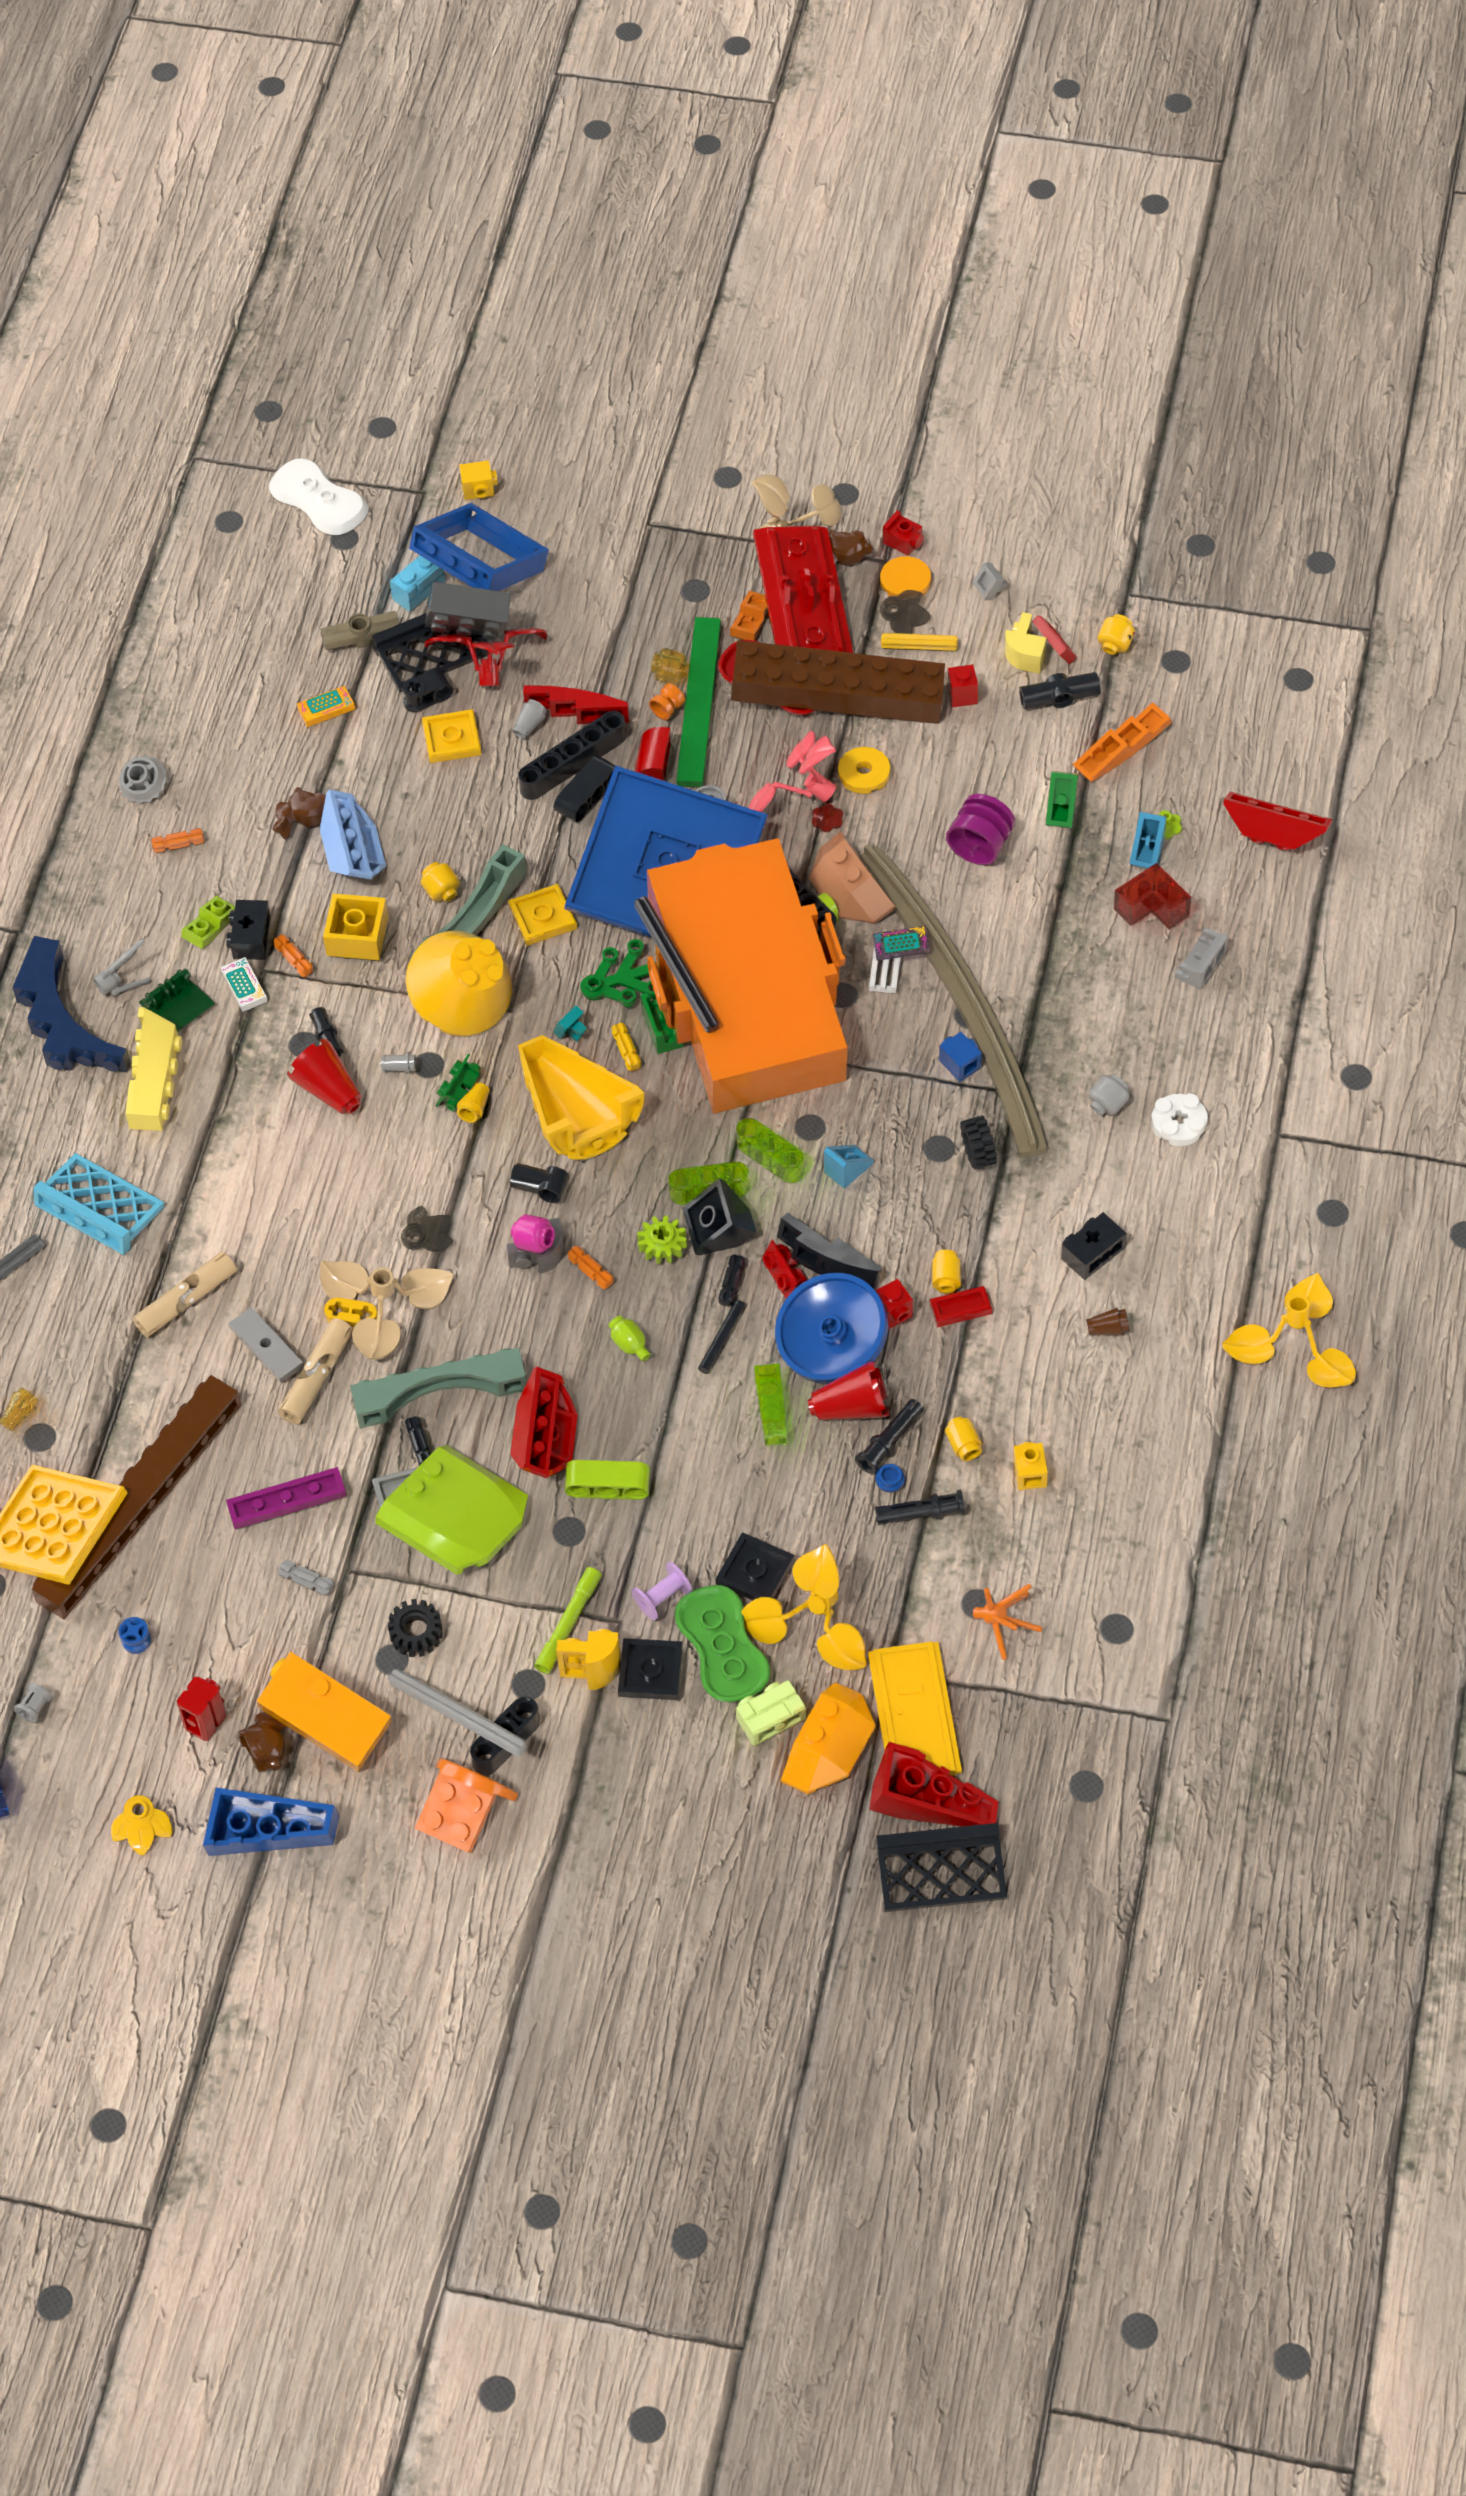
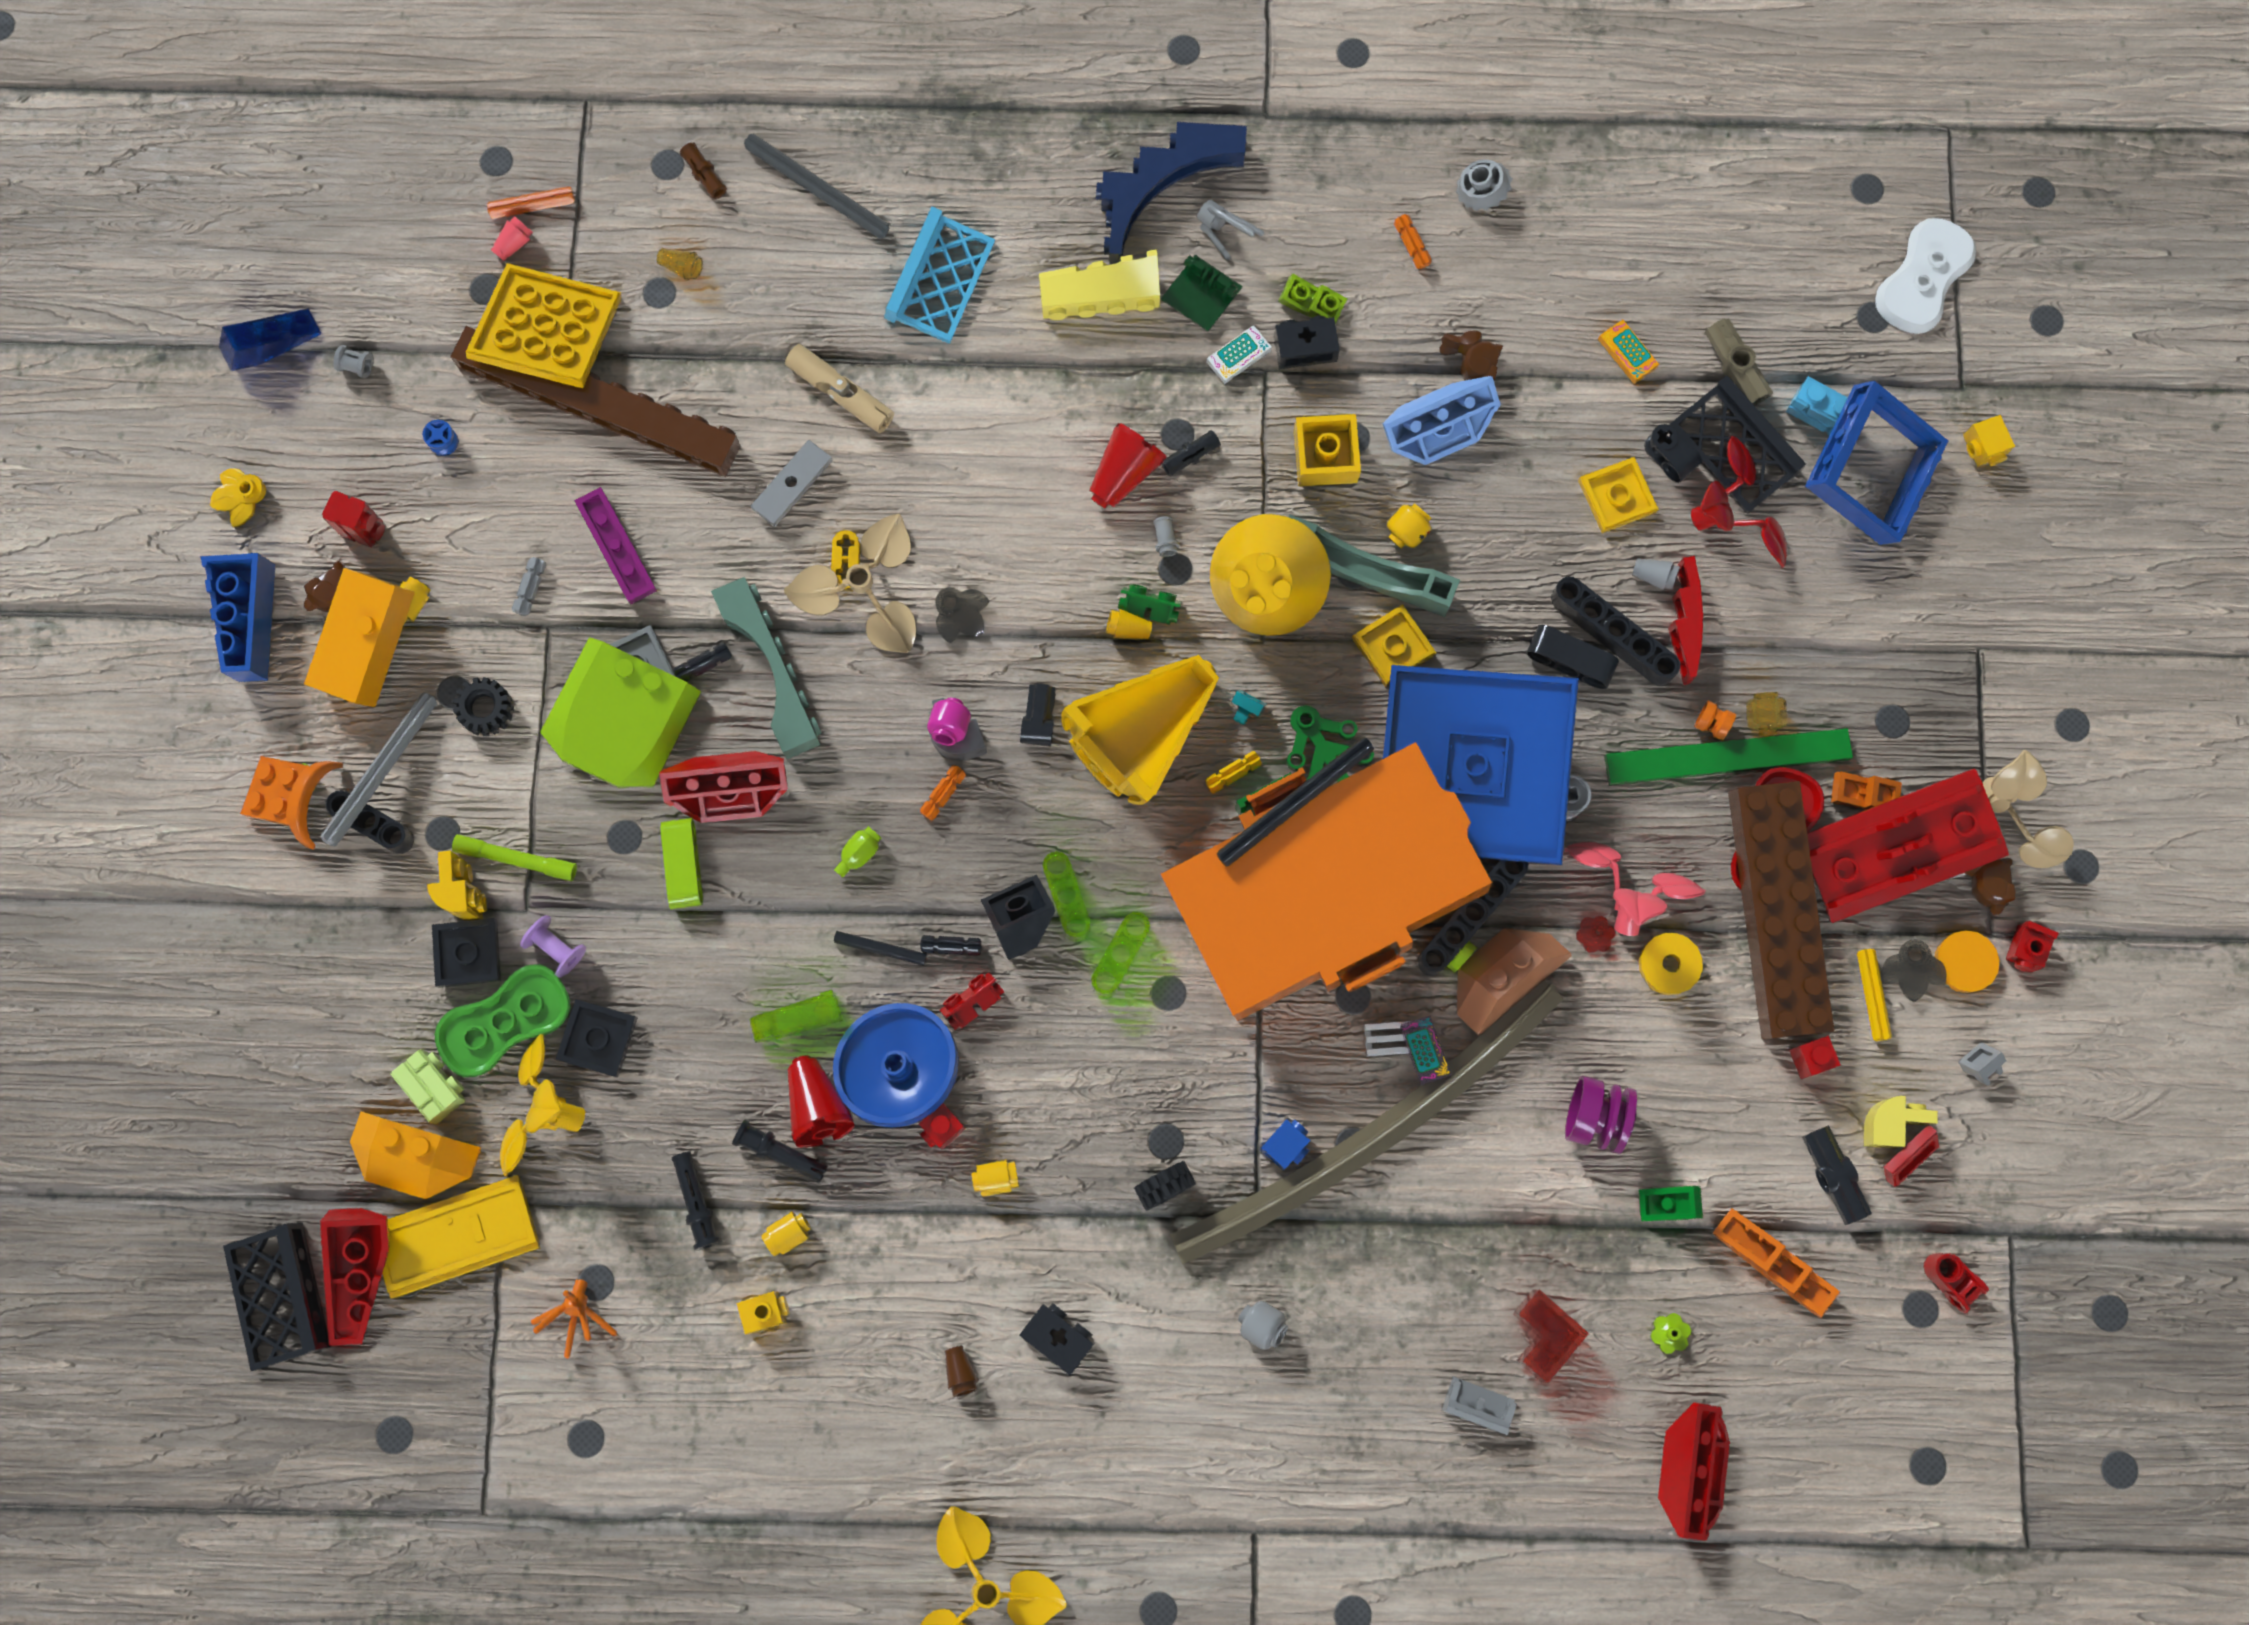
camera: 75 degrees right, 20 degrees up
(293, 955) = (1285, 396): orange axle -> none
(313, 1375) = (763, 538): tan piece -> none
(467, 610) = (1775, 468): dark grey brick -> none
(654, 752) = (1635, 721): red brick -> none
(662, 1239) = (994, 867): lime gear -> none
(823, 1256) = (986, 1054): black slope -> none
(845, 1163) = (1122, 1044): dark azure slope -> none
(890, 1478) = (729, 1161): blue plate -> none
(960, 1306) = (959, 1201): red tile -> none
(1116, 634) = (1936, 1230): yellow head -> none
(1148, 839) = (1631, 1316): dark azure slope -> none
(1157, 632) = (1959, 1284): none -> red piece
(1179, 1105) = (1233, 1404): white plate -> none

